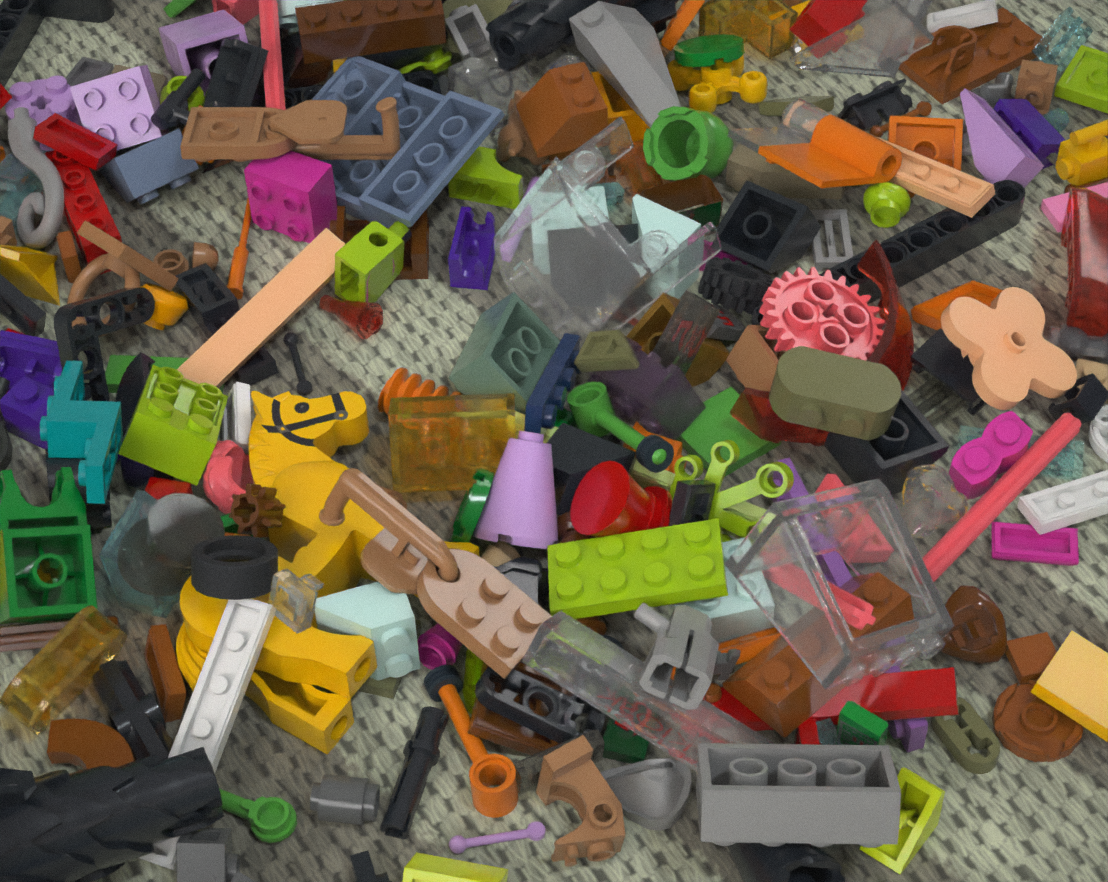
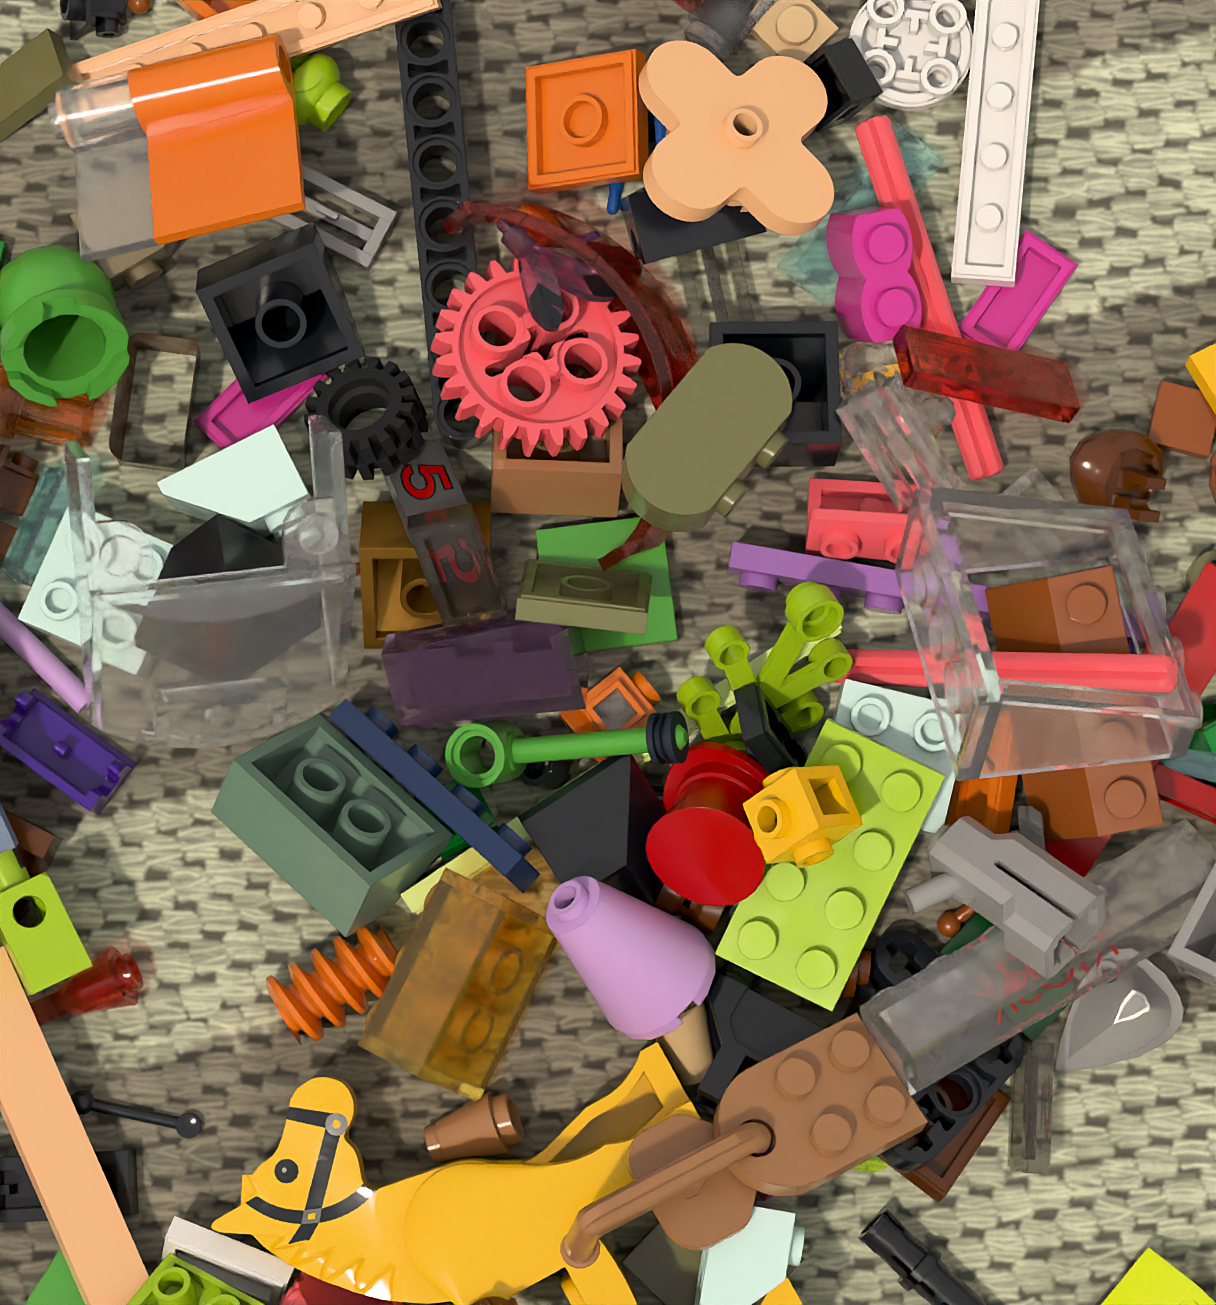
camera: 65 degrees left, 35 degrees up
(471, 506) = (585, 1013): green tile -> none
(487, 769) = (958, 1199): orange piece -> none
(534, 831) = (1097, 1180): lavender hinge -> none
(573, 778) = (1156, 1106): medium nougat tile -> none
(606, 352) = (433, 691): olive tile -> none
(653, 509) = (802, 814): none -> yellow brick
(707, 395) = (584, 596): none -> olive tile
(869, 300) = (548, 271): none -> piece
(909, 484) = (906, 443): none -> clear tile
(976, 529) = (985, 374): none -> clear red tile

